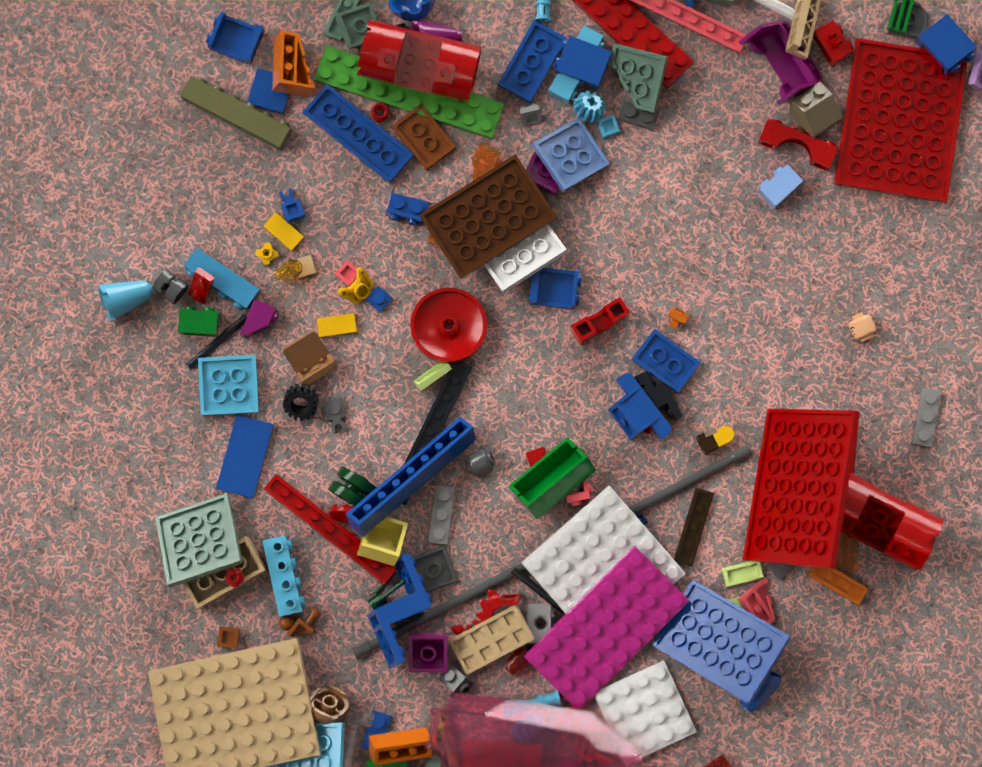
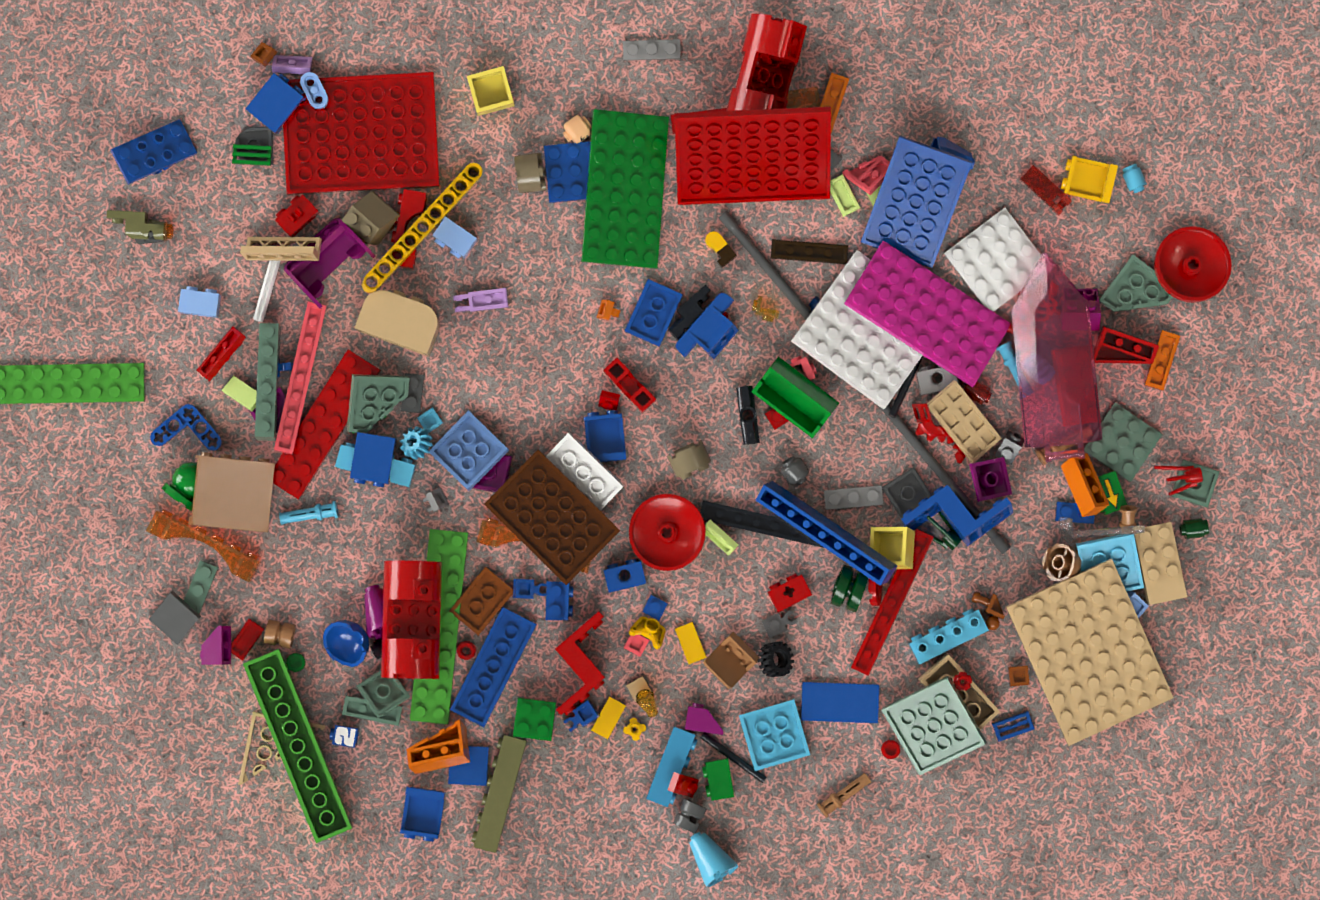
camera: 105 degrees left, 5 degrees up
(148, 431) = (824, 807): none -> medium nougat pin
(187, 495) = (890, 749): none -> red plate
(188, 621) = (998, 731): none -> blue tile
(298, 160) = (534, 719): none -> green brick
(340, 214) = (580, 663): none -> red bracket
(360, 441) = (800, 592): none -> red brick
(411, 265) = (636, 578): none -> blue brick
(425, 179) = (525, 589): none -> blue plate
(515, 362) = (689, 459): none -> dark tan brick
(531, 61) = (381, 510): blue plate -> none
(532, 429) = (748, 427): none -> black piece
(589, 298) = (609, 400): none -> red plate
(639, 471) = (767, 314): none -> clear yellow bracket
(710, 115) = (399, 321): none -> tan brick
(713, 201) = (483, 300): none -> lavender hinge
(793, 359) = (625, 189): none -> green plate
(805, 159) = (426, 219): none -> yellow beam
(821, 316) = (567, 171): none -> blue plate
(829, 270) = (530, 173): none -> dark tan brick
(917, 251) = (490, 91): none -> light yellow piece
(951, 84) = (314, 91): none -> light blue plate

